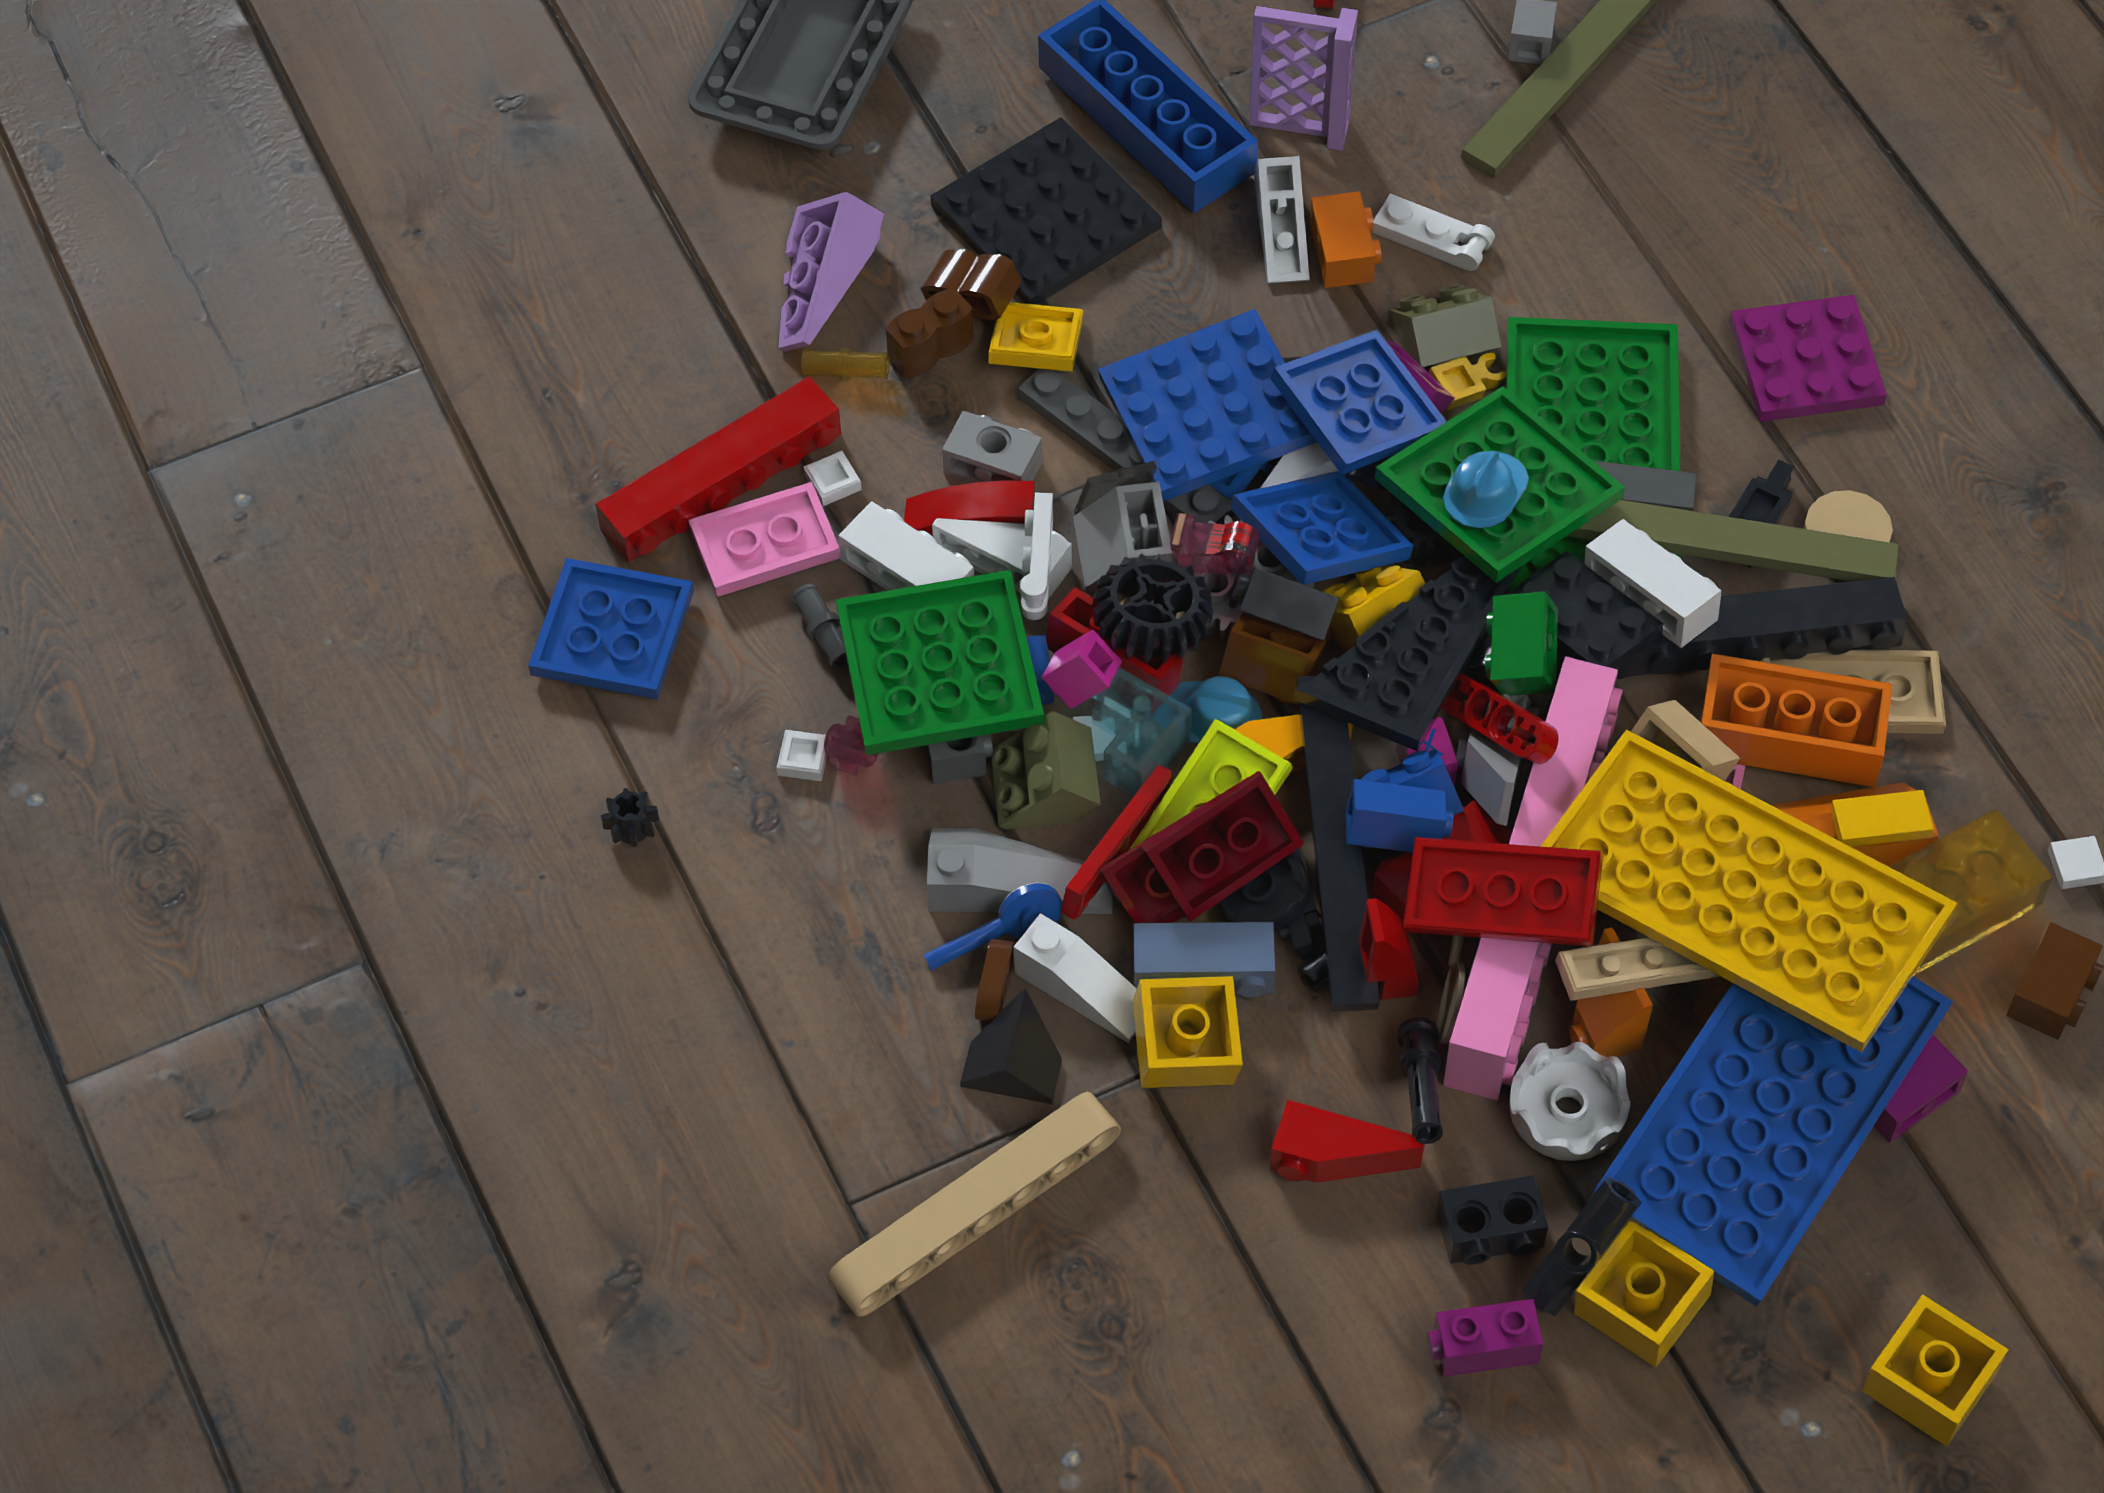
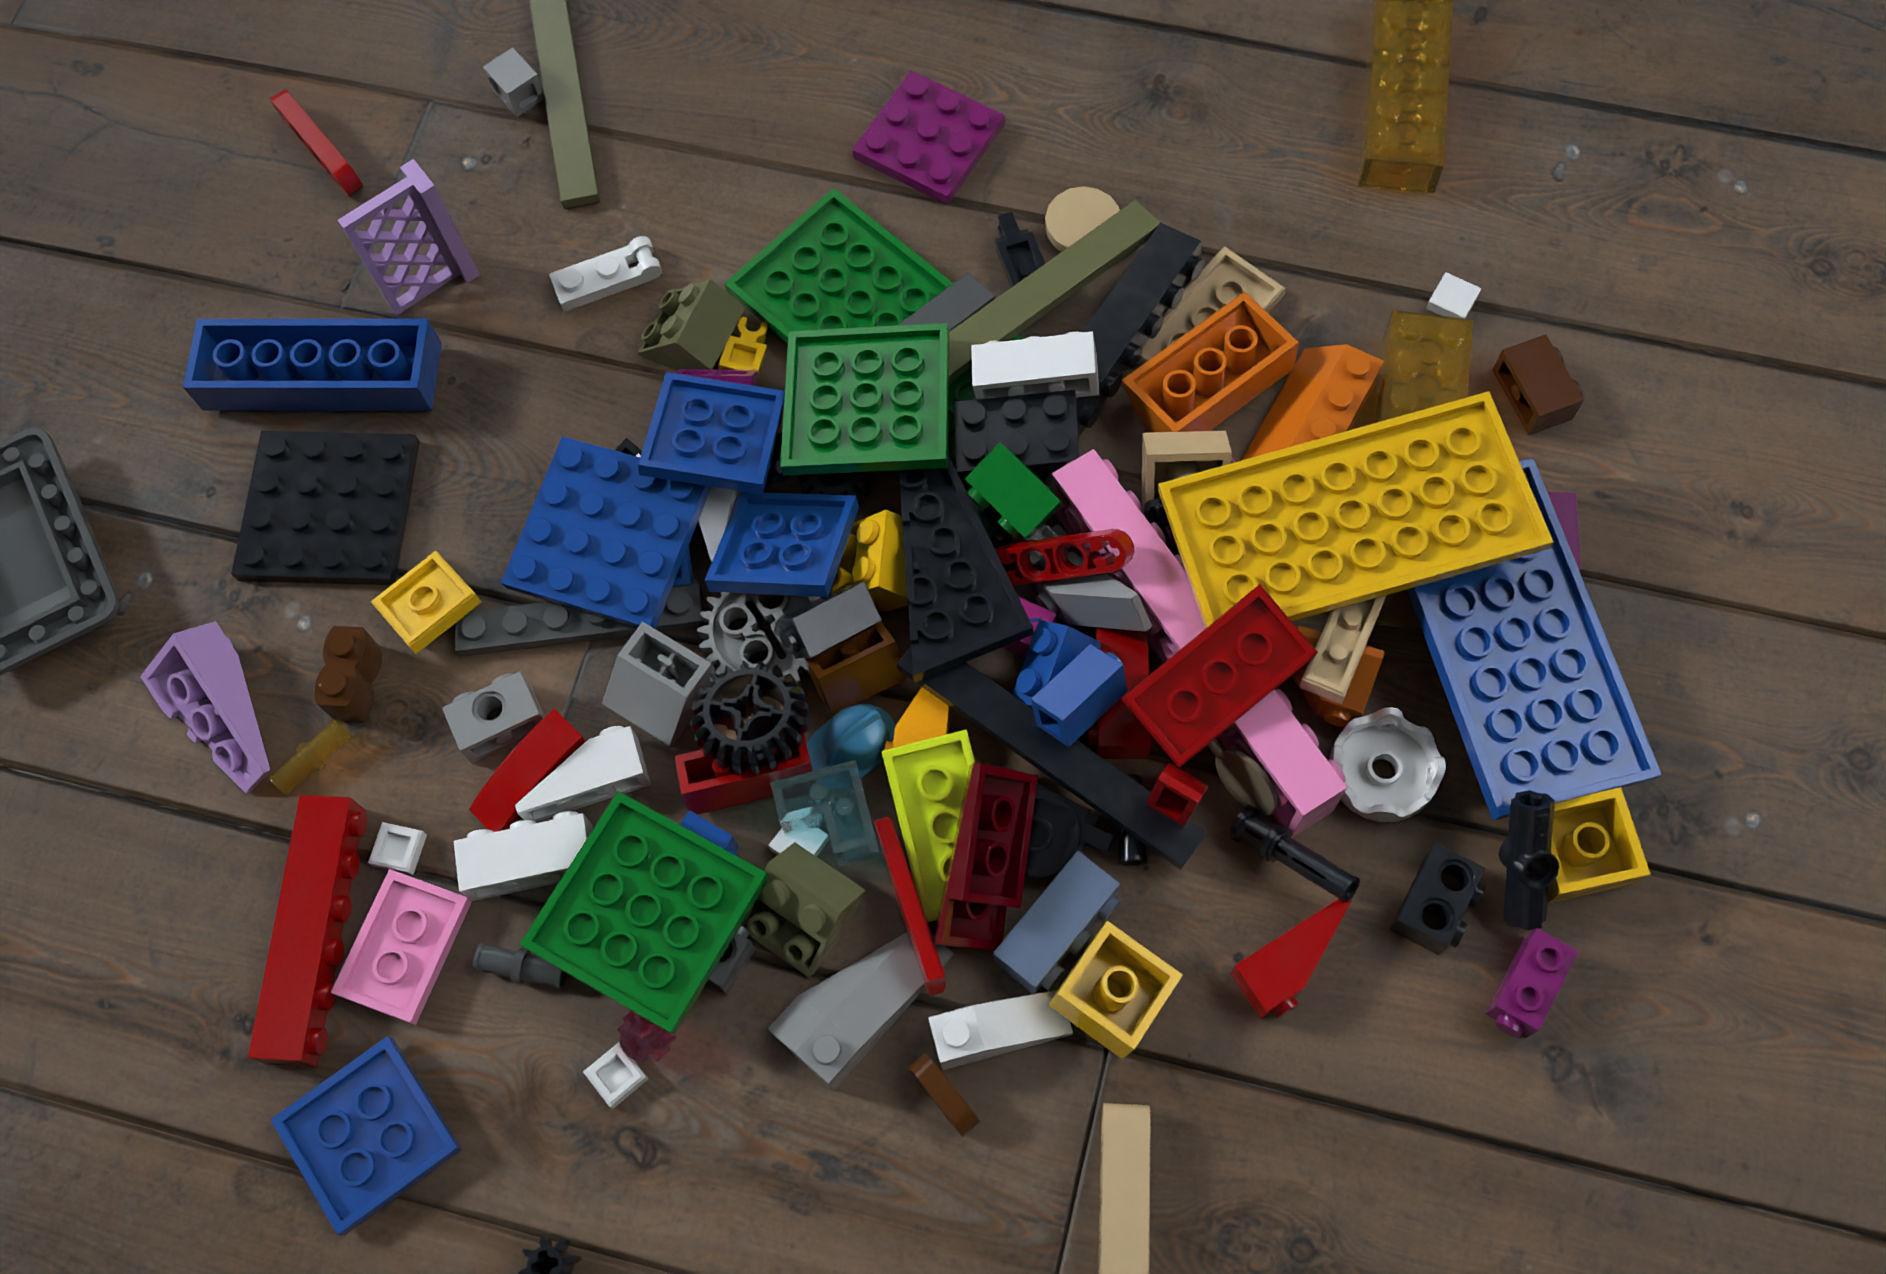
camera: 45 degrees left, 10 degrees up
(982, 280) = (343, 600): reddish brown brick -> none
(1014, 918) = (907, 1028): blue piece -> none
(1014, 1055) = (1018, 1134): black slope -> none
(1037, 558) = (625, 761): white plate -> none
(1081, 669) = (751, 811): dark pink brick -> none
(1100, 485) = (617, 643): clear smoke piece -> none
(1214, 546) = (733, 629): clear pink leg -> none
(1281, 219) = (499, 358): white slope -> none
(1344, 239) = (556, 333): orange brick -> none
(1485, 489) = (868, 411): dark azure piece -> none
(1882, 818) = (1350, 383): yellow tile -> none
(1934, 1370) = (1788, 705): yellow brick -> none

